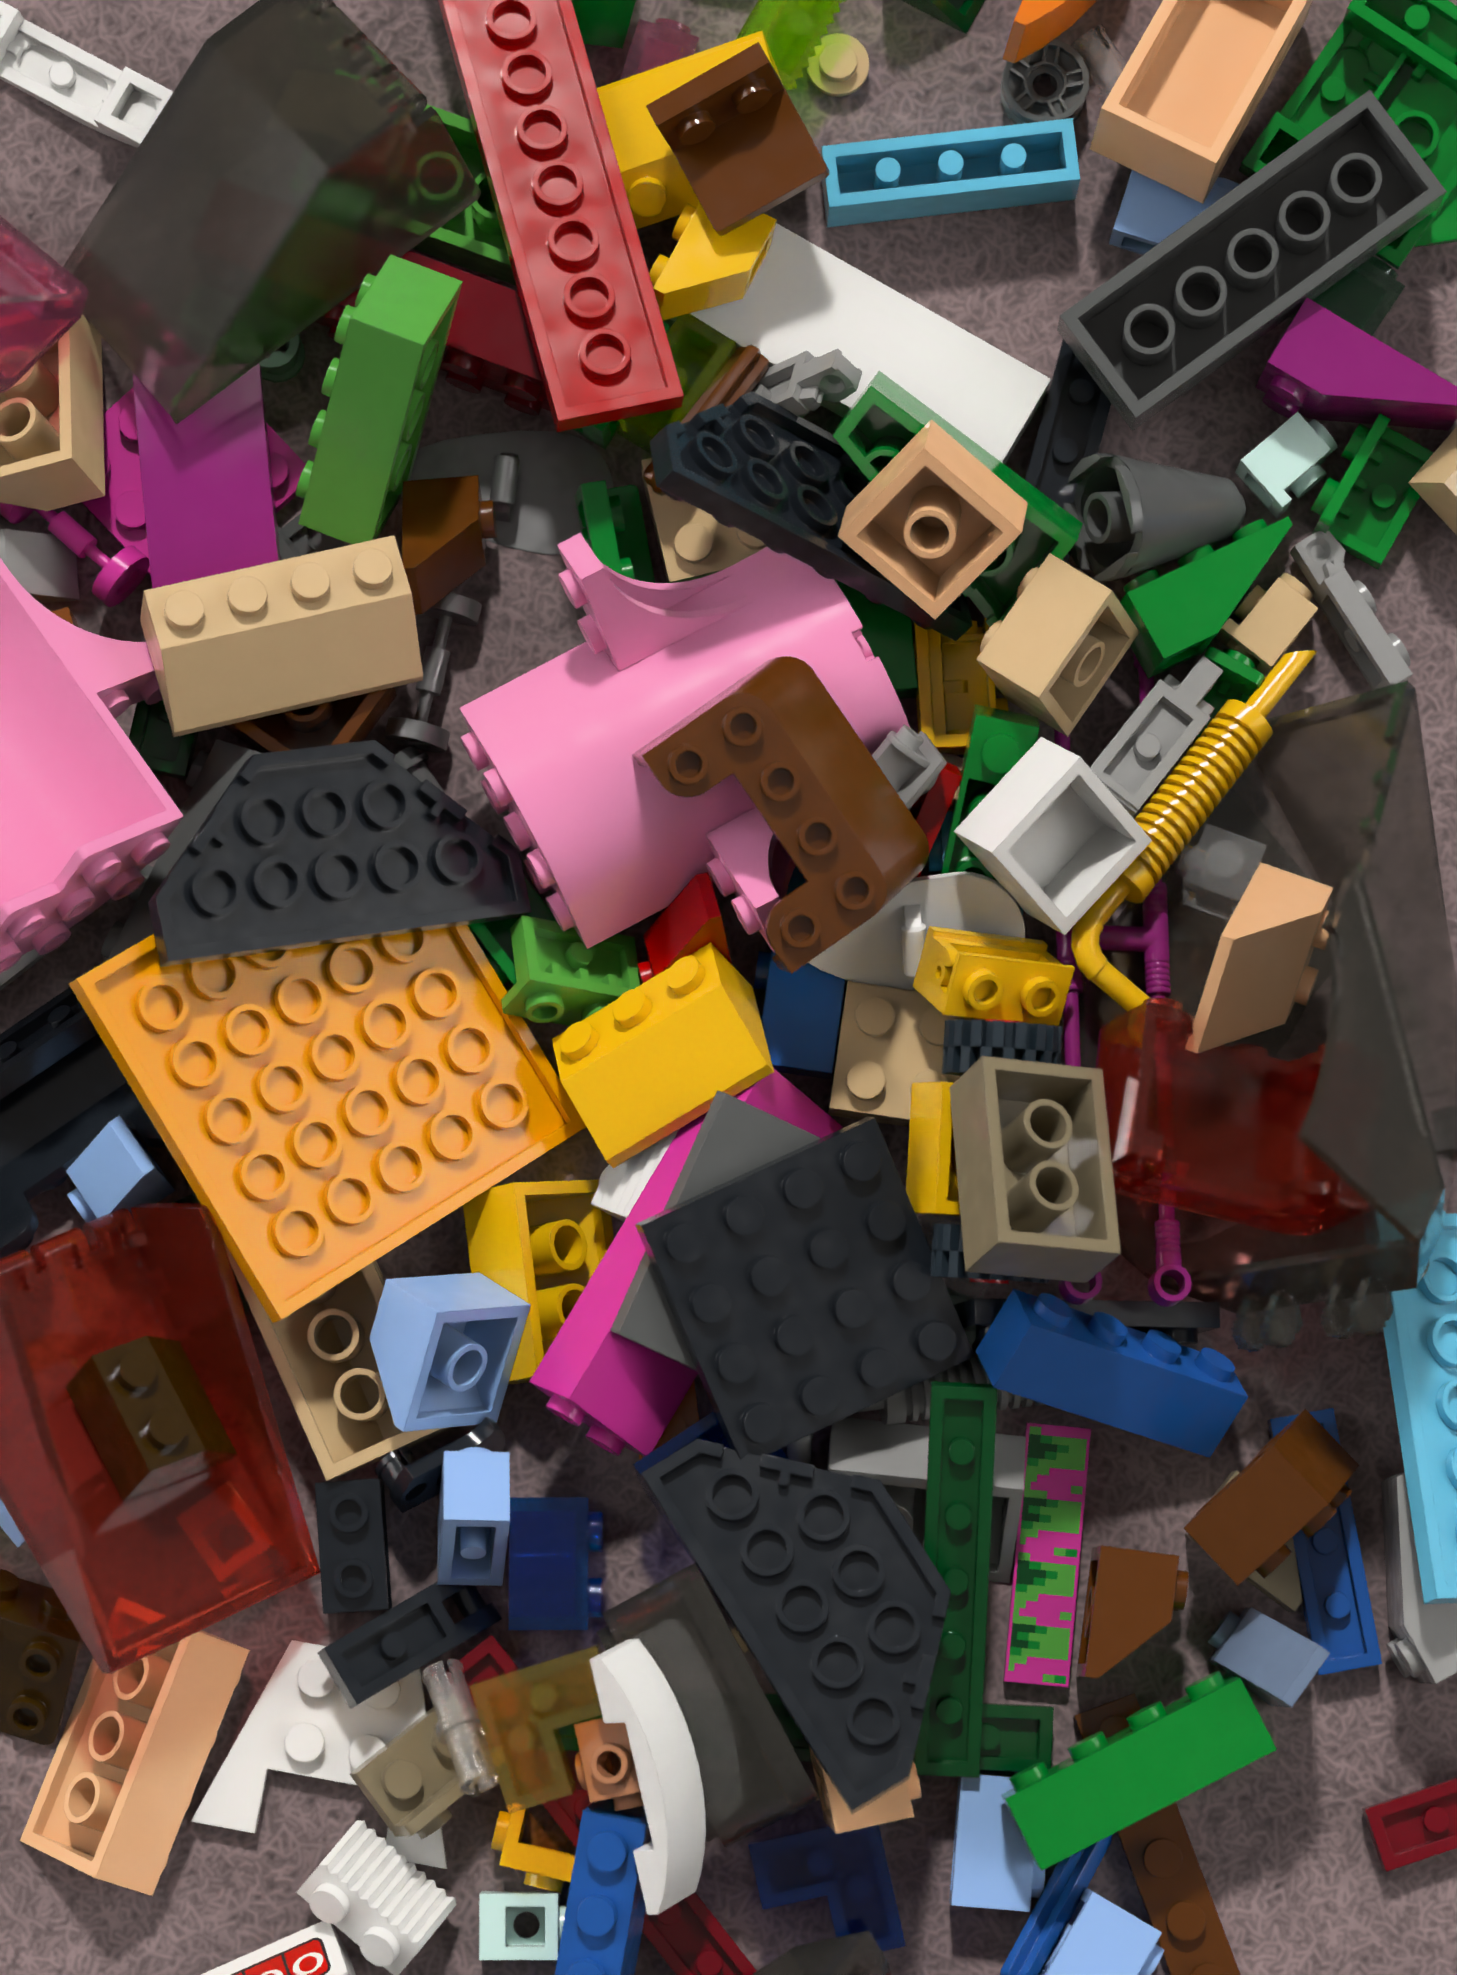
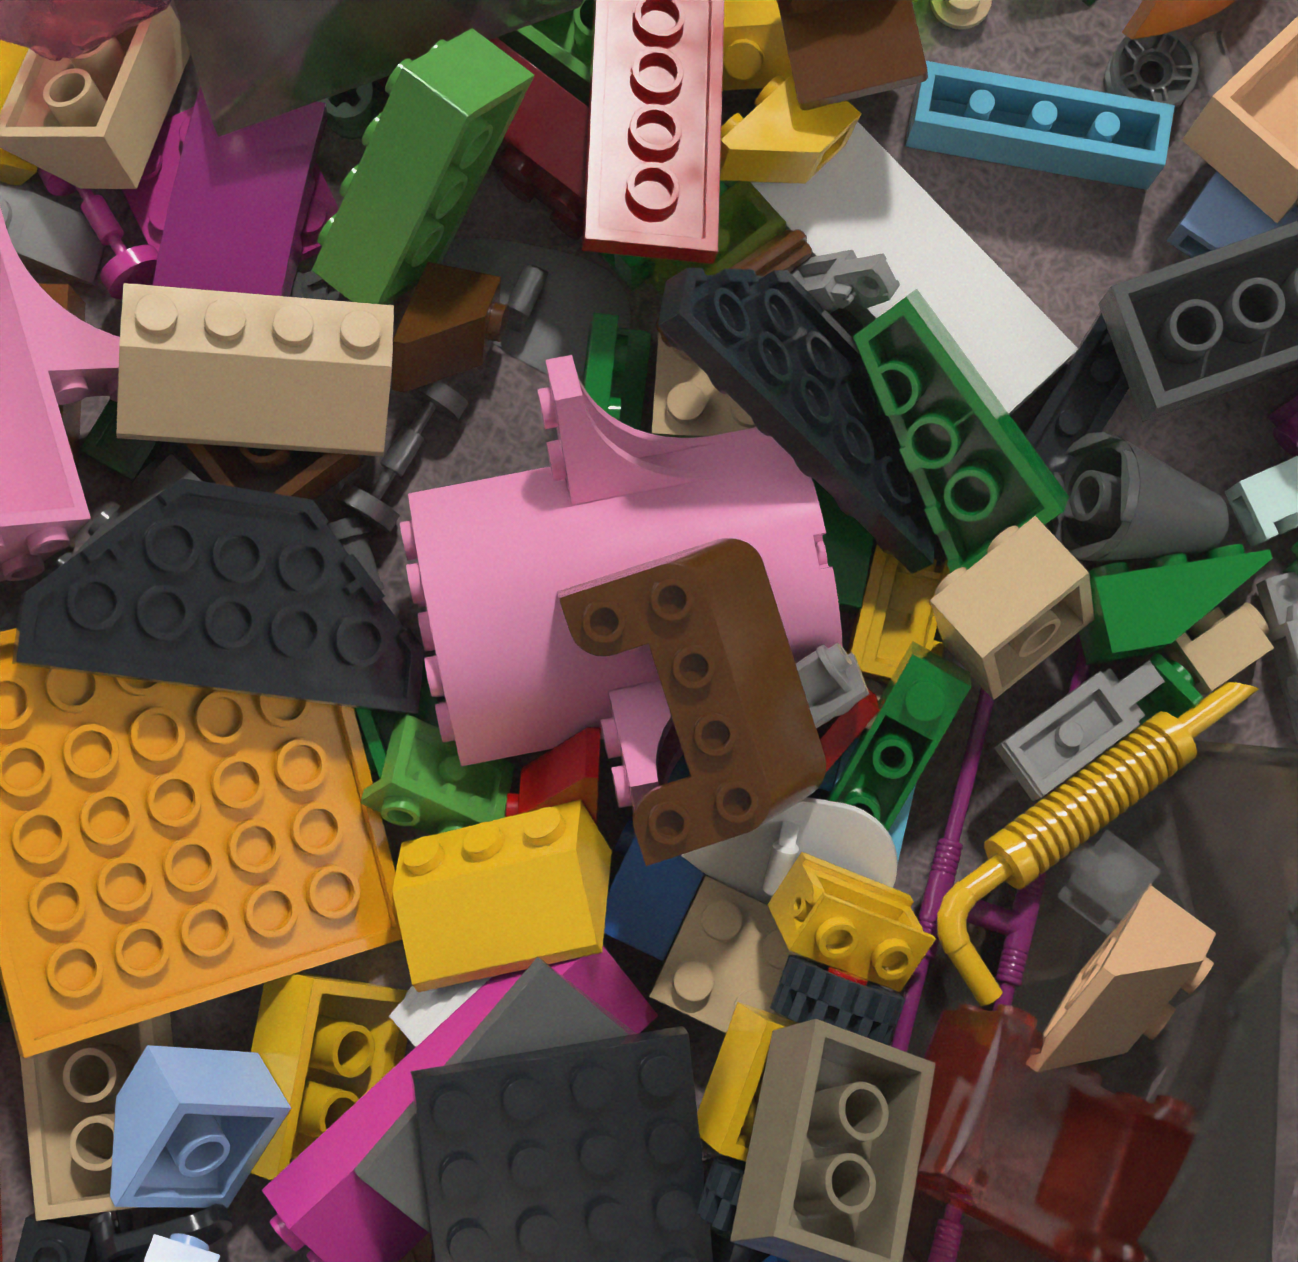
camera: 15 degrees right, 0 degrees up
(933, 519) = (929, 448): light nougat brick -> none
(1053, 835) = (954, 799): white piece -> none

